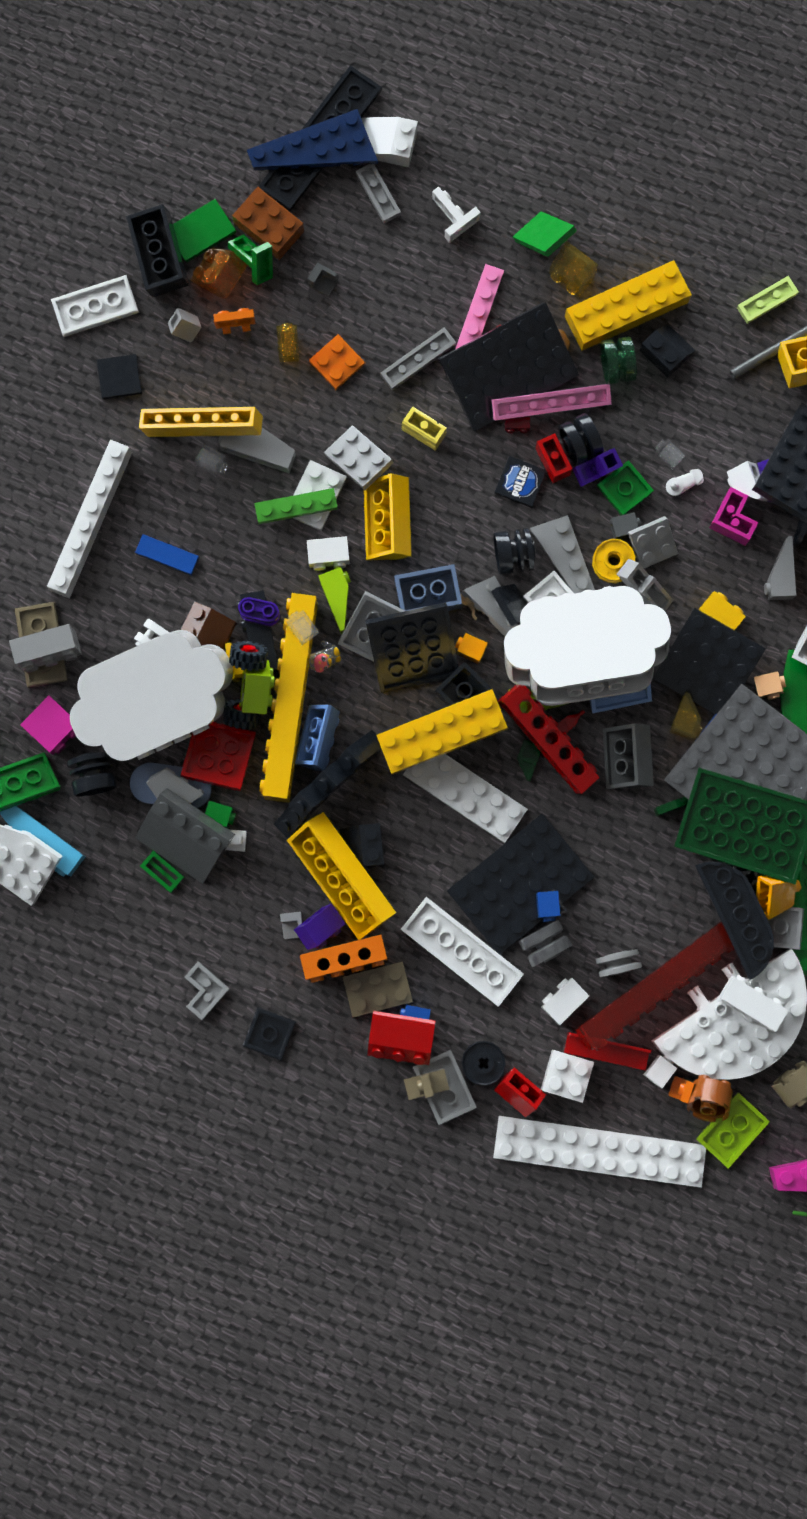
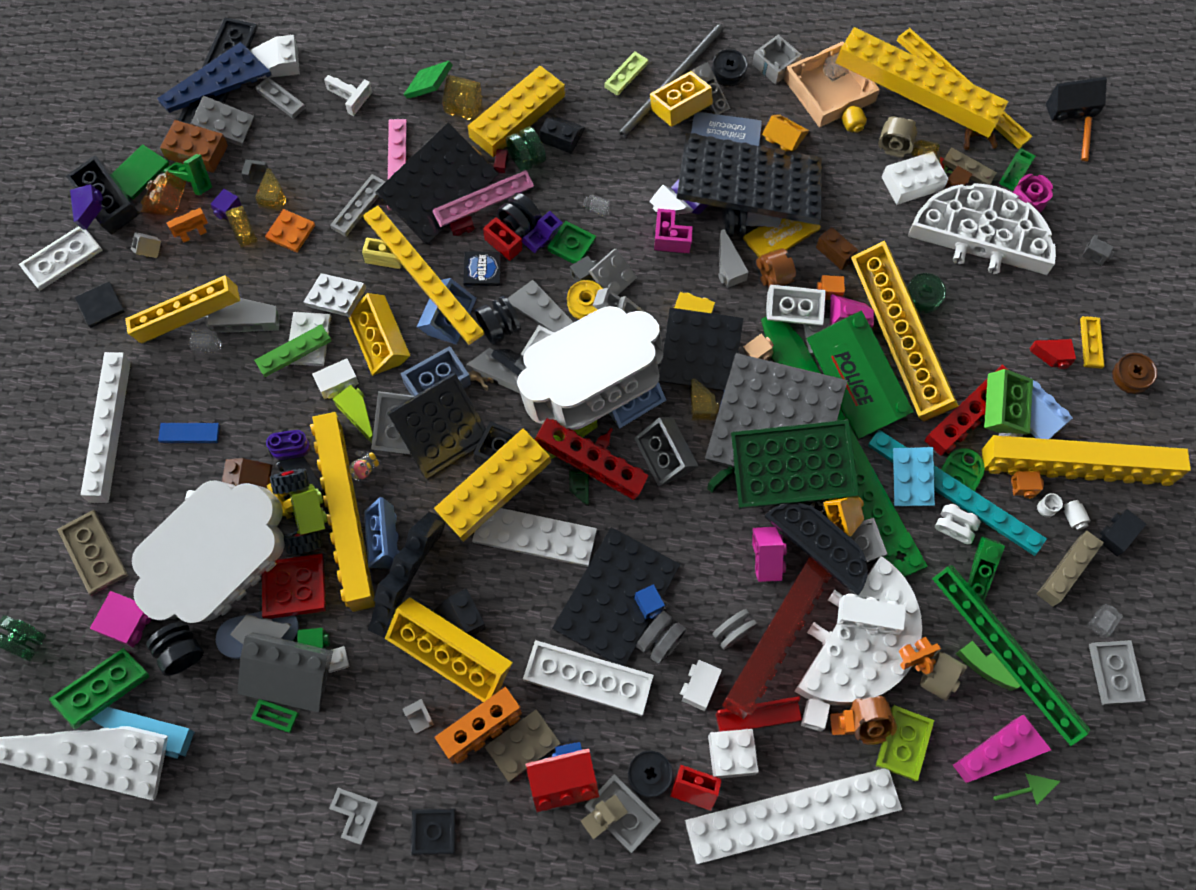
camera: 25 degrees left, 15 degrees down
(45, 648) = (94, 548): light grey brick -> none
(137, 263) = (85, 205): none -> dark purple slope
(279, 308) = (224, 202): none -> dark purple brick
(302, 626) = (331, 439): clear brick -> none
(307, 202) = (223, 119): none -> light grey plate
(319, 927) = (445, 705): dark purple brick -> none
(331, 311) = (270, 192): none -> clear yellow slope
(455, 474) = (424, 275): none -> yellow plate
(465, 519) = (433, 320): none -> medium blue slope
(471, 648) = (492, 411): light orange brick -> none
(587, 360) = (500, 160): none -> dark red piece
(680, 484) = (615, 226): white piece -> none
(684, 902) = (769, 554): none -> dark pink brick
(790, 1057) = (922, 657): none -> orange hips

